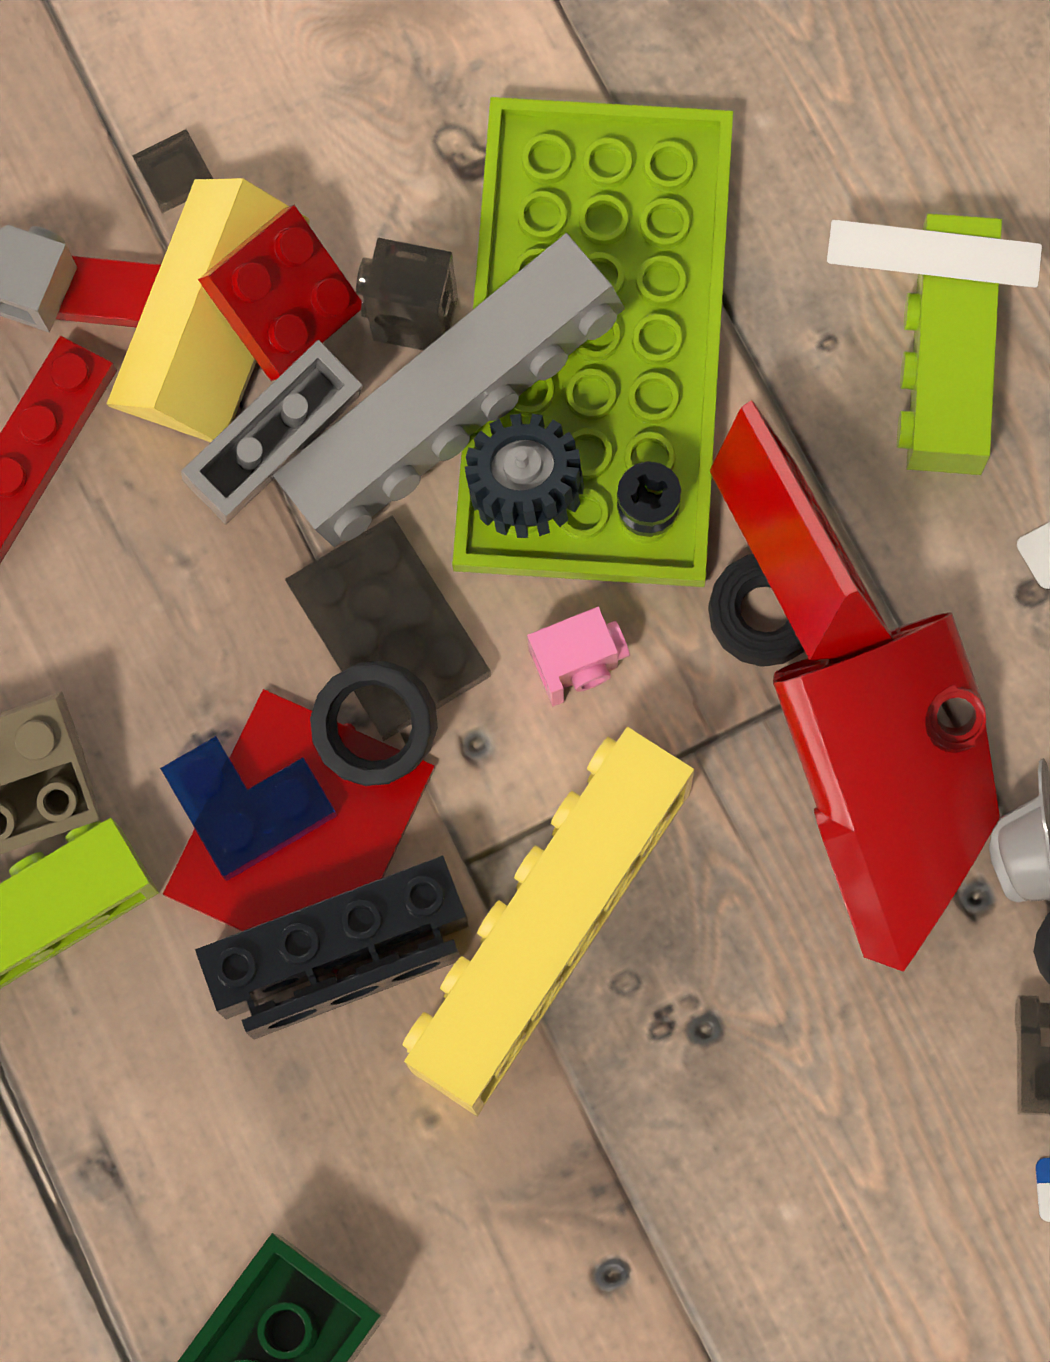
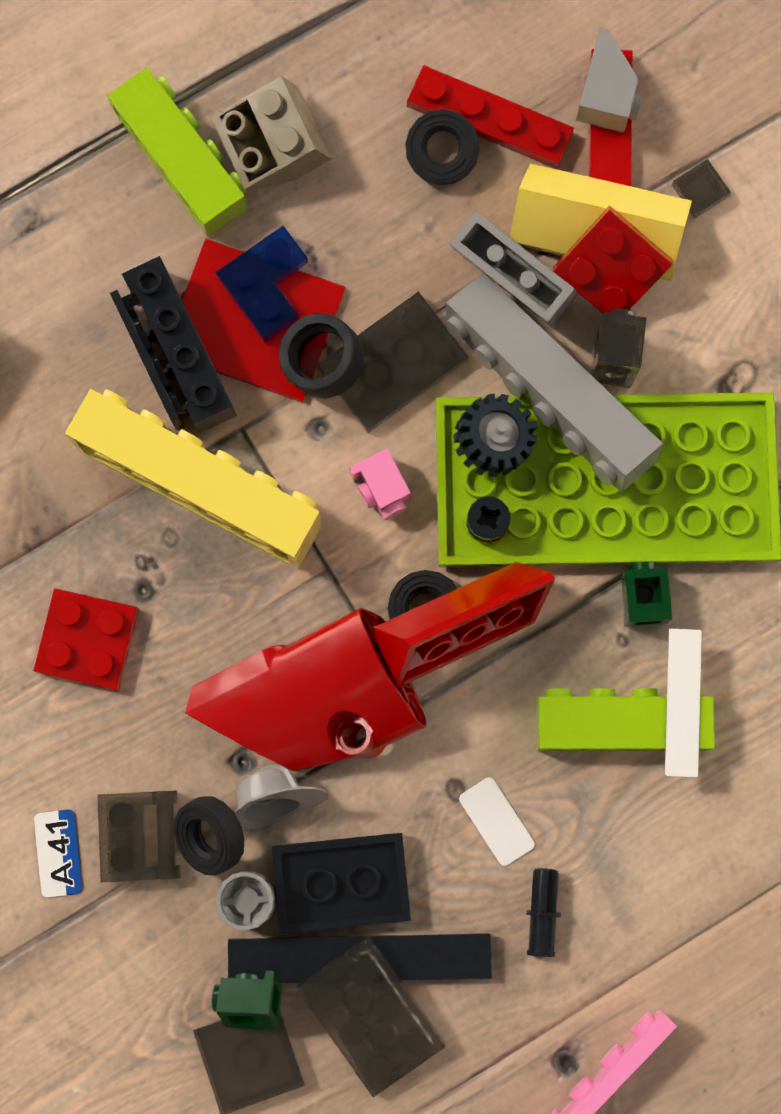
camera: 80 degrees right, 5 degrees up
(58, 487) = (417, 141): none -> black tyre
(777, 1120) = (86, 639): none -> red plate
(779, 279) = (656, 580): none -> dark green brick

